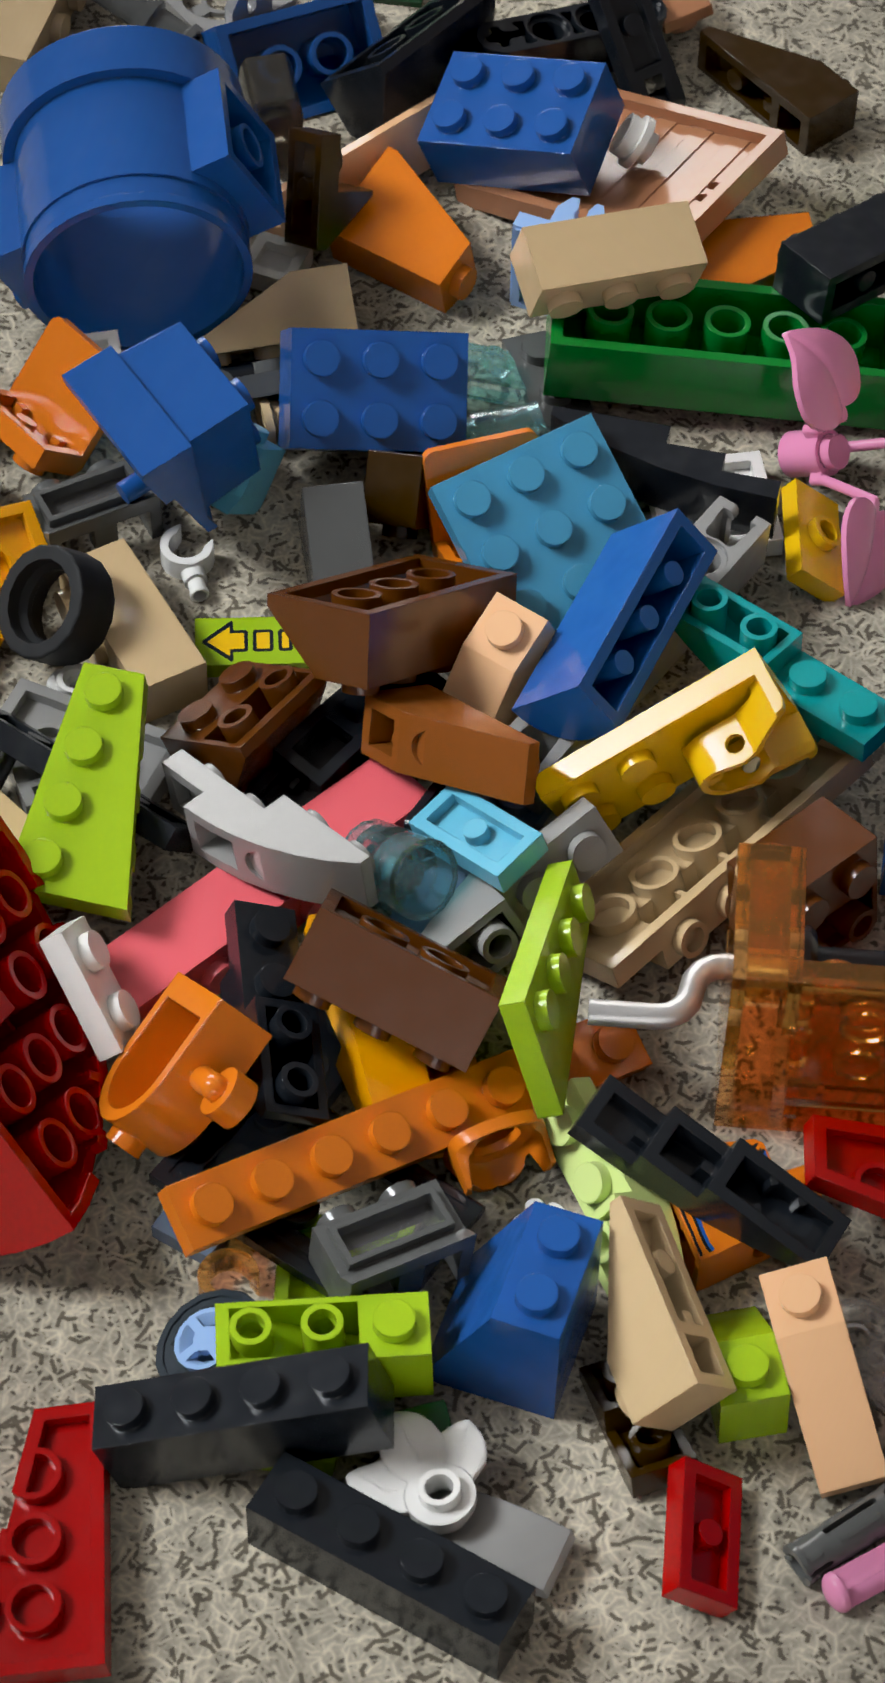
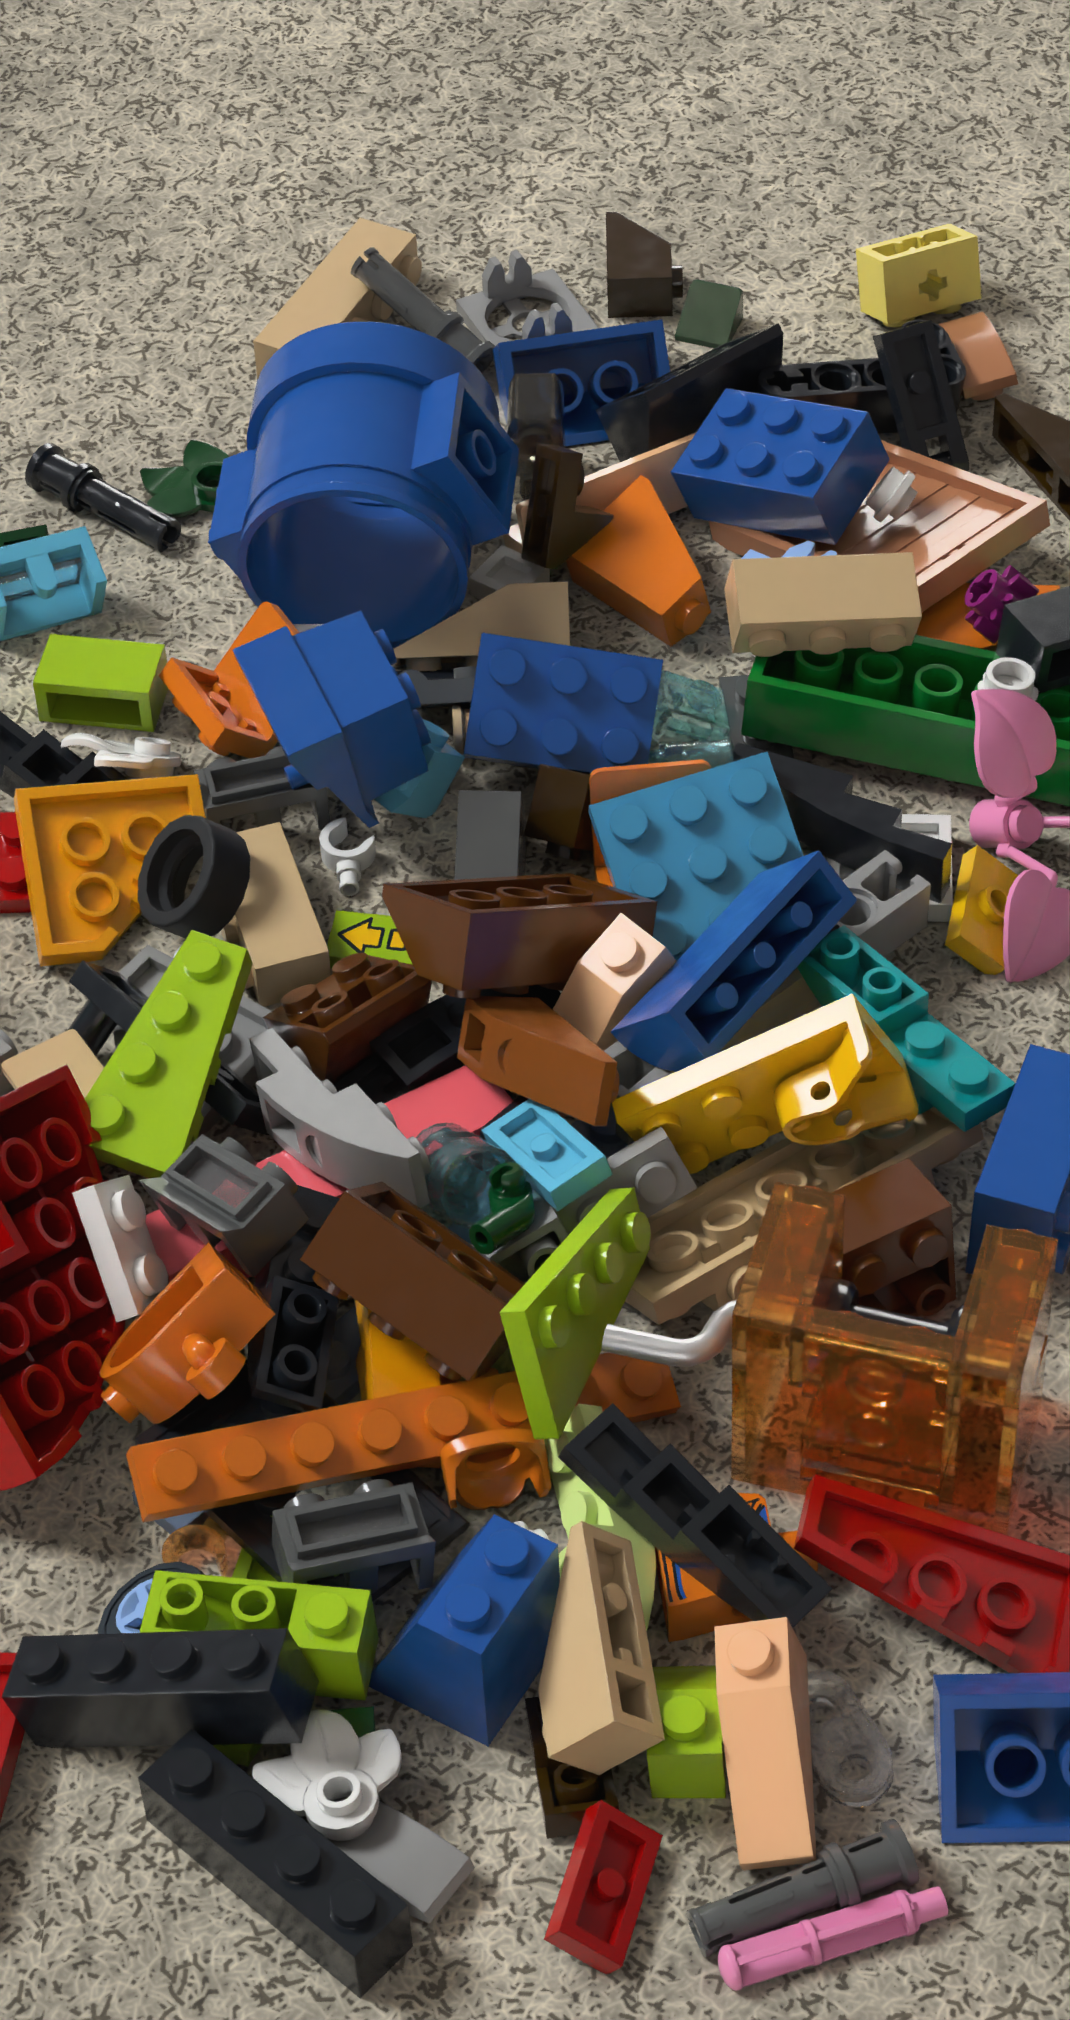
camera: 15 degrees right, 5 degrees down
(189, 926) = (229, 1200): none -> dark grey window
(457, 895) = (510, 1209): none -> dark green arm
(760, 236) = (989, 595): none -> magenta gear
(796, 312) = (1010, 675): none -> white plate

